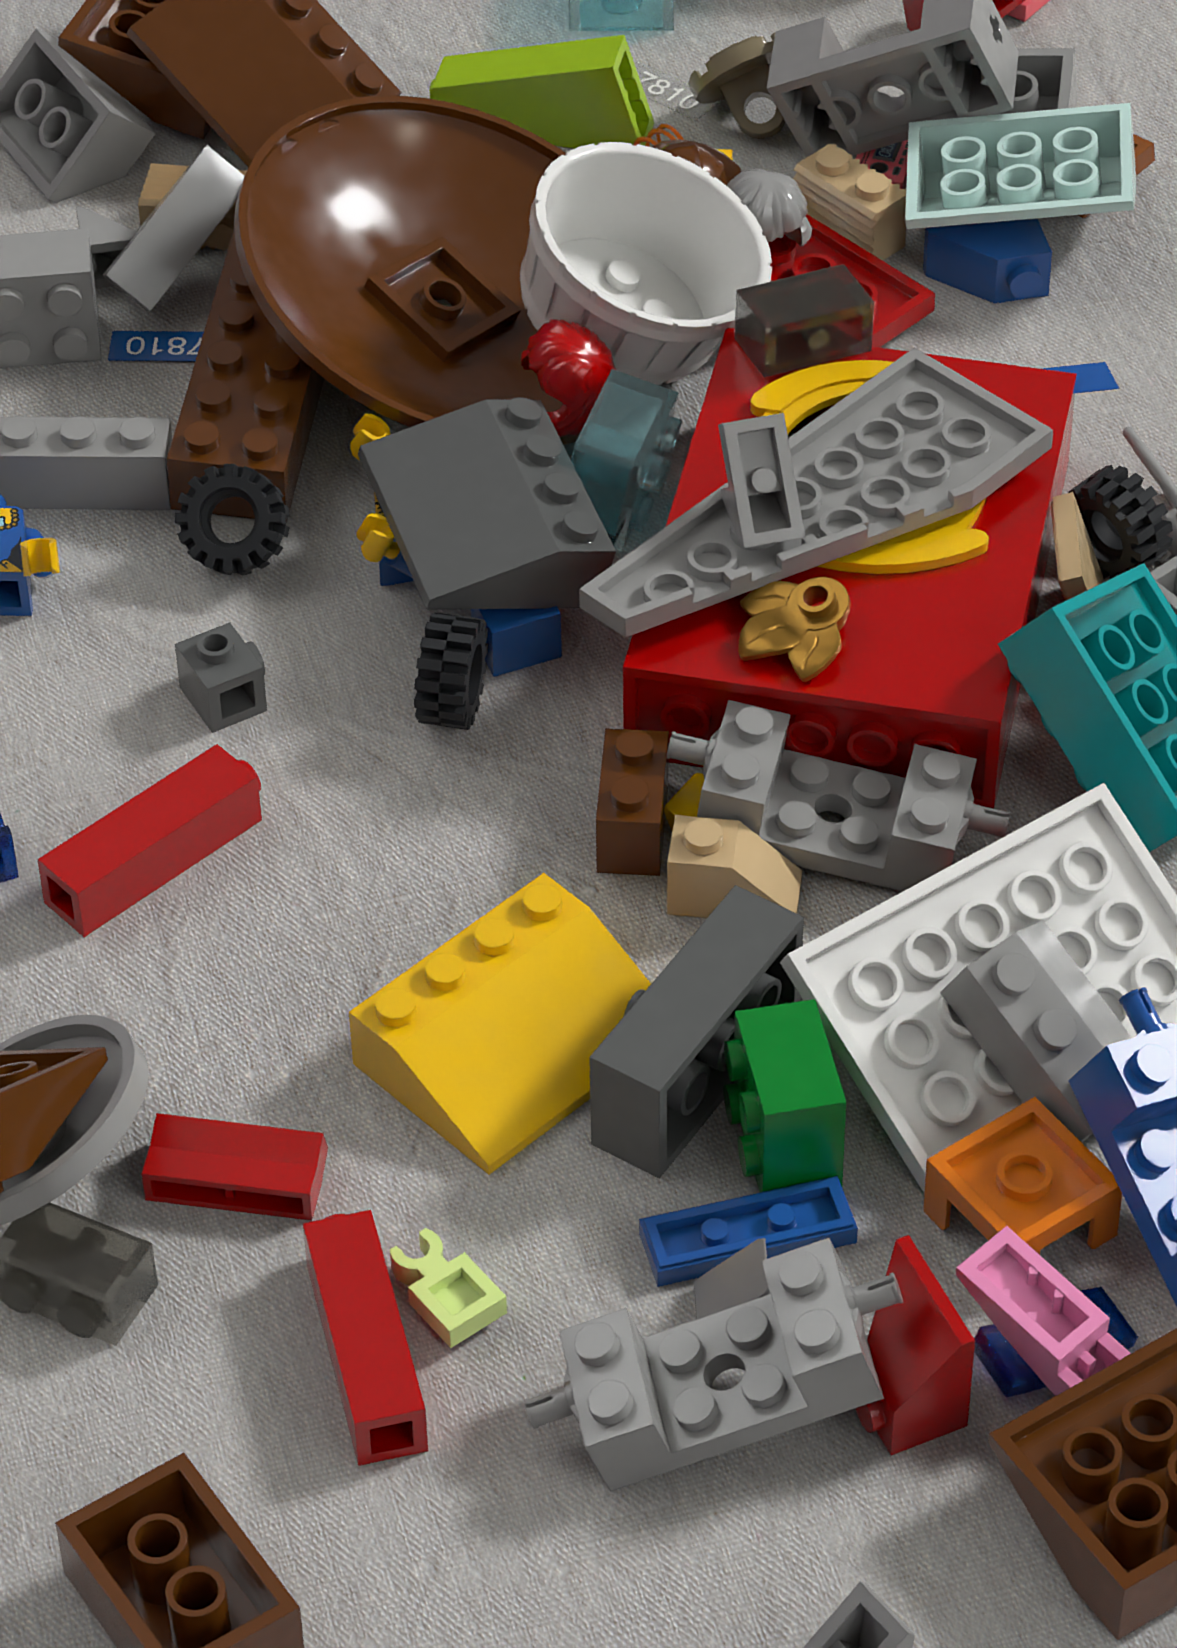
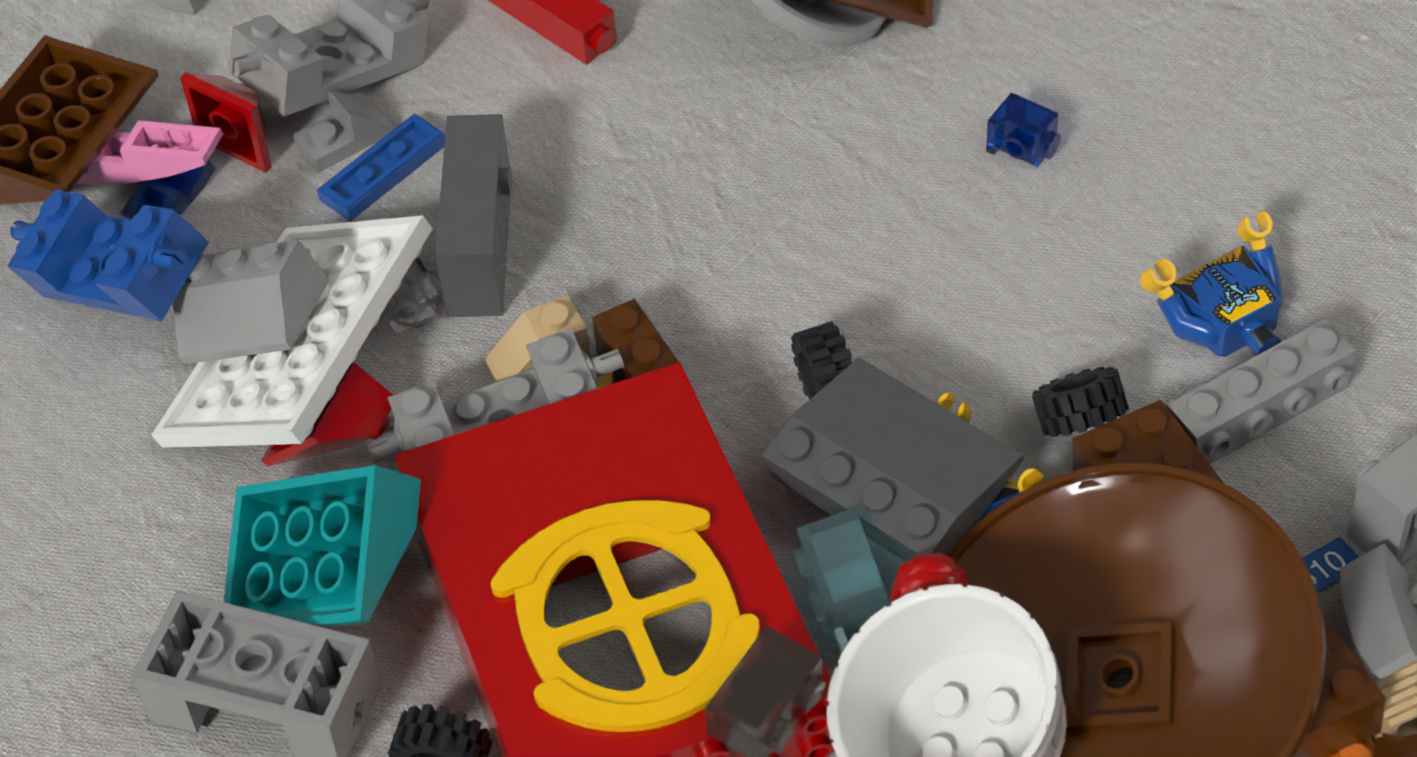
camera: 150 degrees right, 5 degrees up
(150, 839) = (916, 187): red brick -> none
(222, 676) = (983, 309): dark grey brick -> none
(234, 1166) = (693, 50): red piece -> none
(449, 1295) = (519, 45): yellowish green plate -> none
(499, 1022) = (603, 196): yellow slope -> none
(761, 481) = (656, 465): light grey slope -> none
(785, 1096) = (384, 184): green brick -> none
(789, 623) = (579, 436): pearl gold plate -> none
(866, 470) = (607, 579): light grey wing -> none
(1024, 1176) = (233, 216): orange panel -> none
(1074, 553) = (431, 664): tan tile -> none

